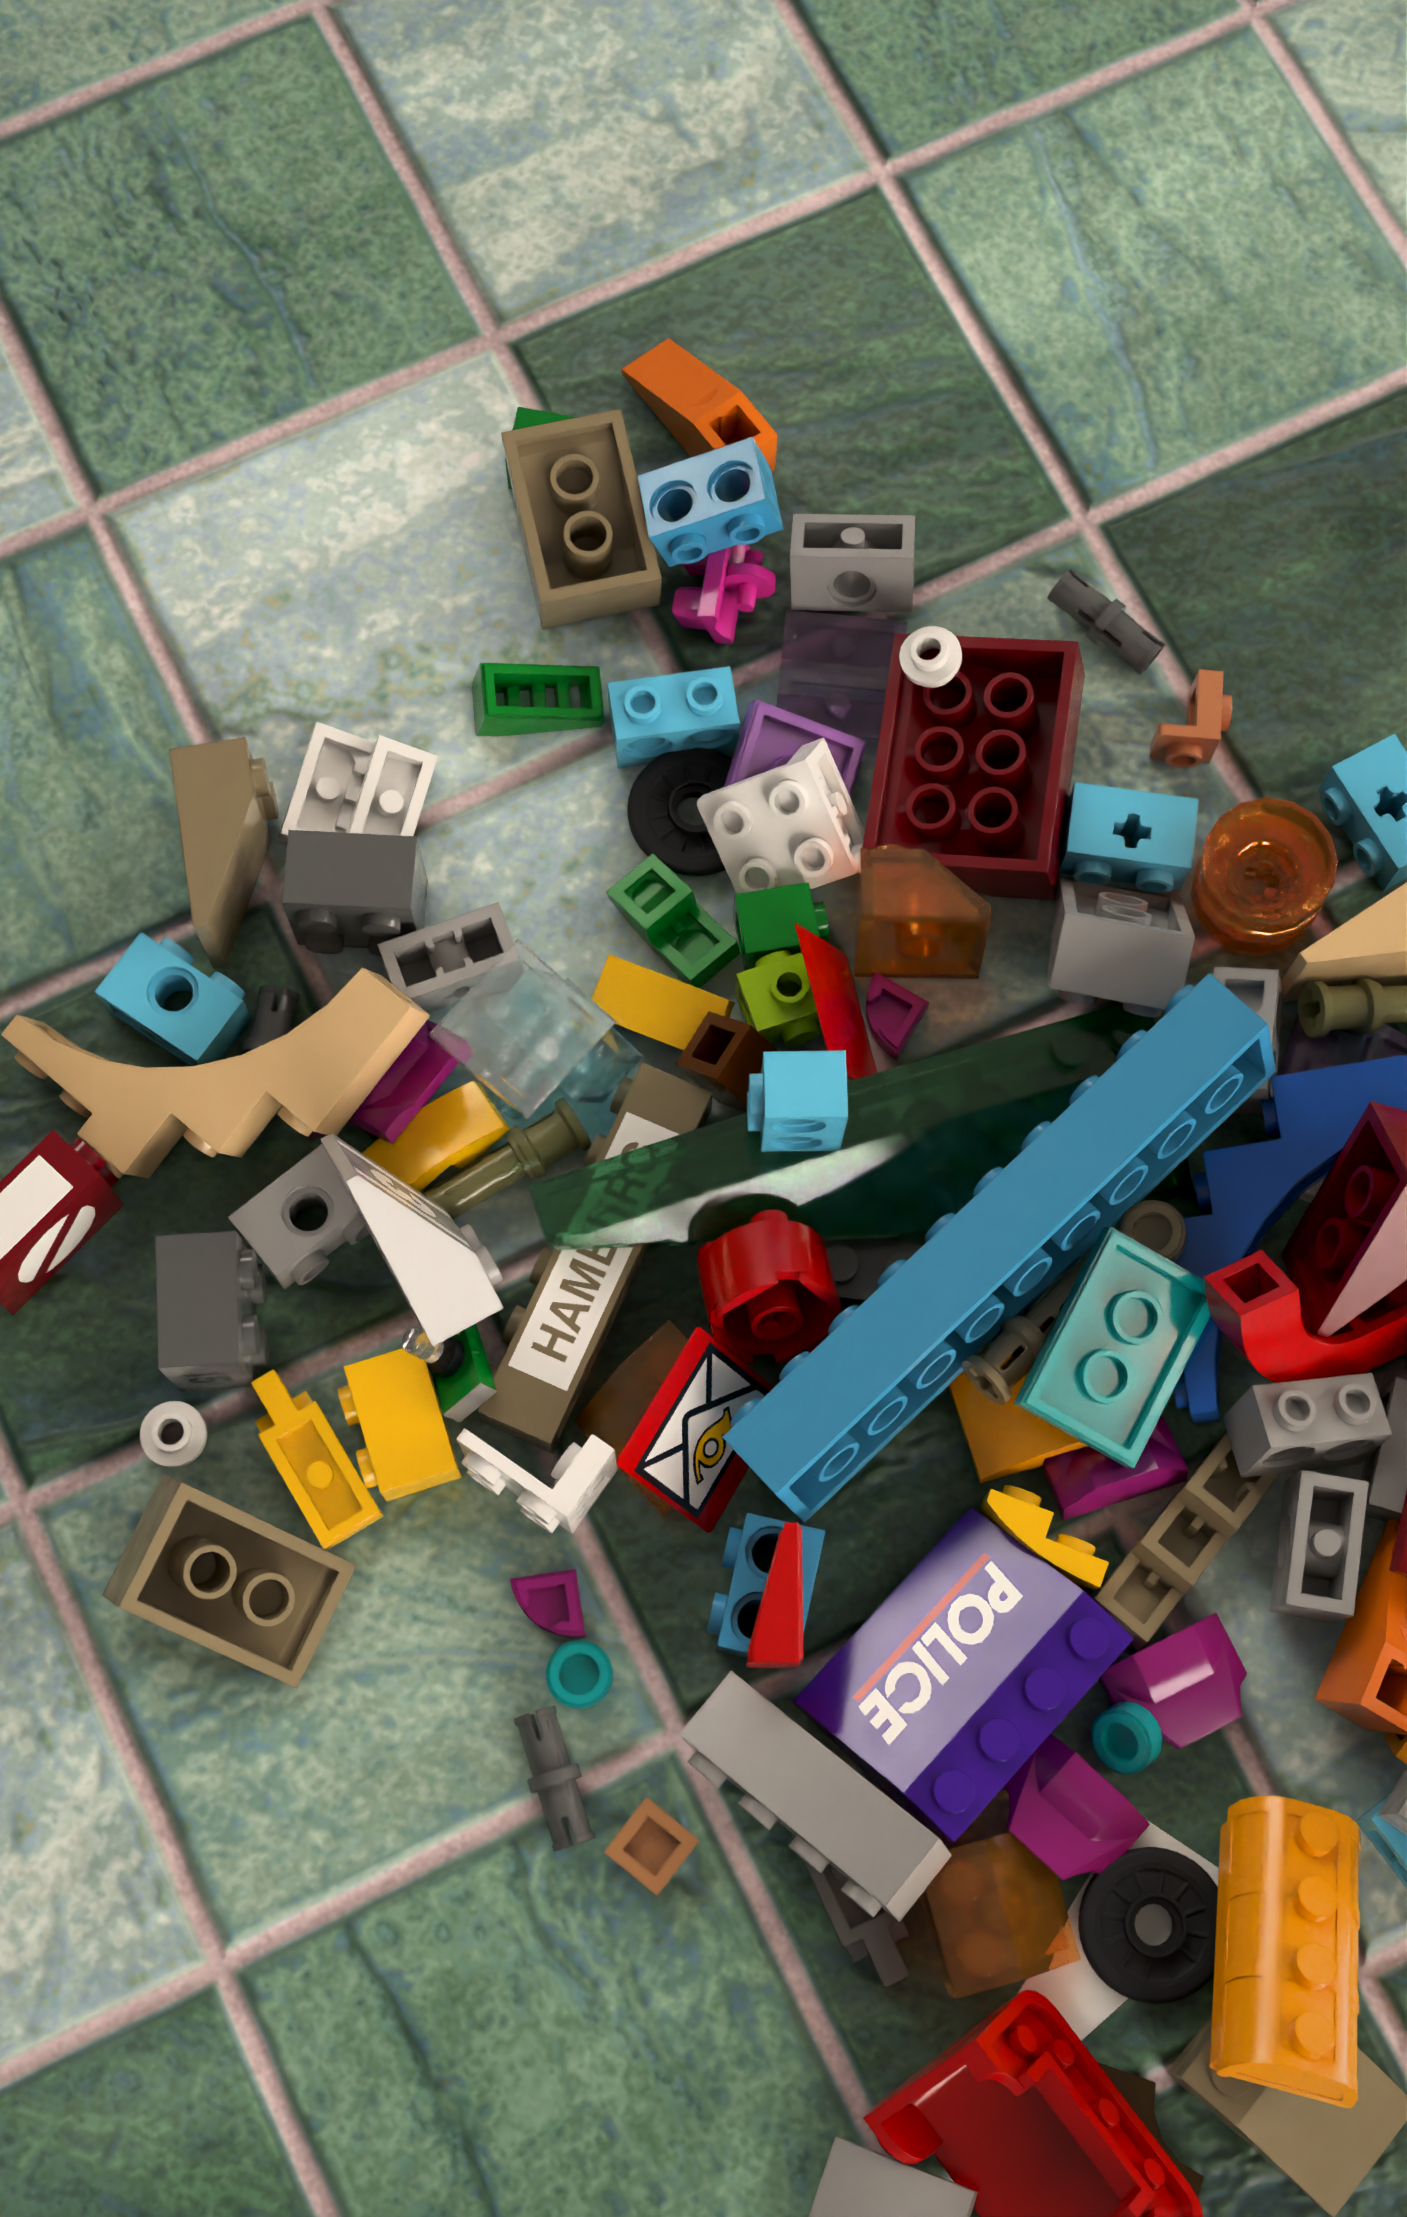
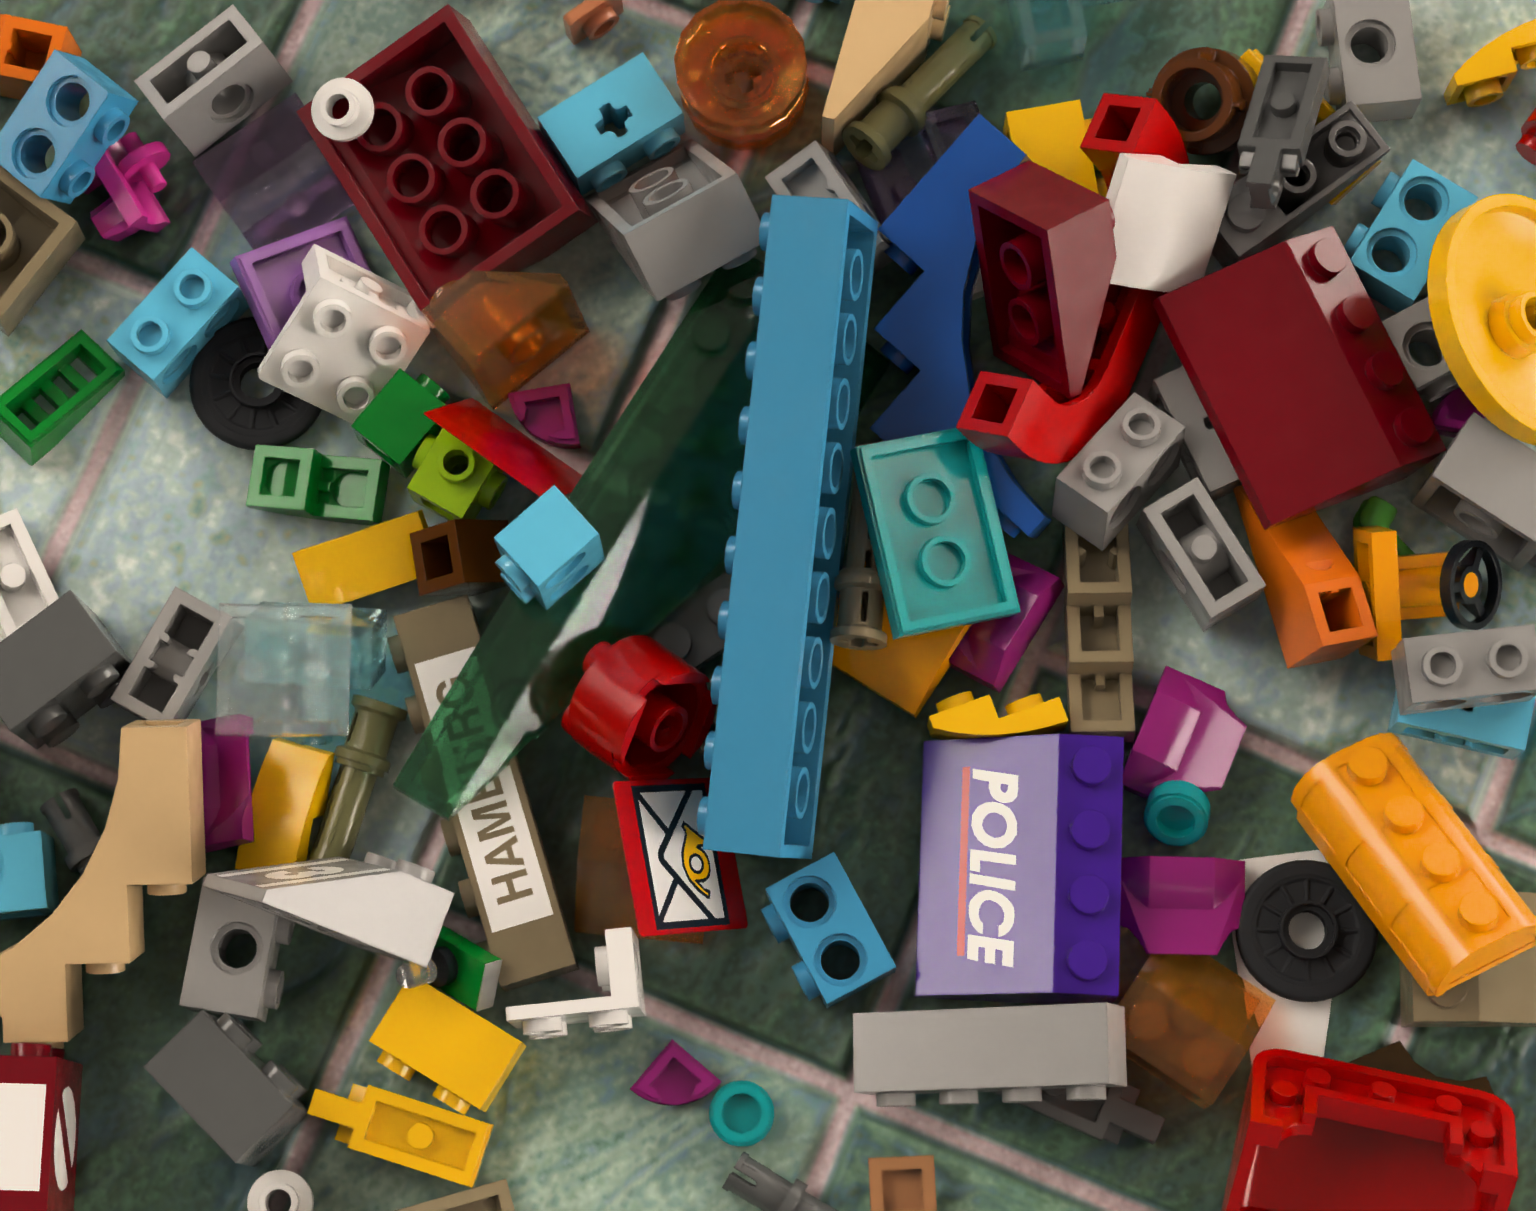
camera: 35 degrees left, 5 degrees up
(779, 1622) = (858, 945): red slope -> none
(1156, 1227) = (888, 417): dark tan tile -> none

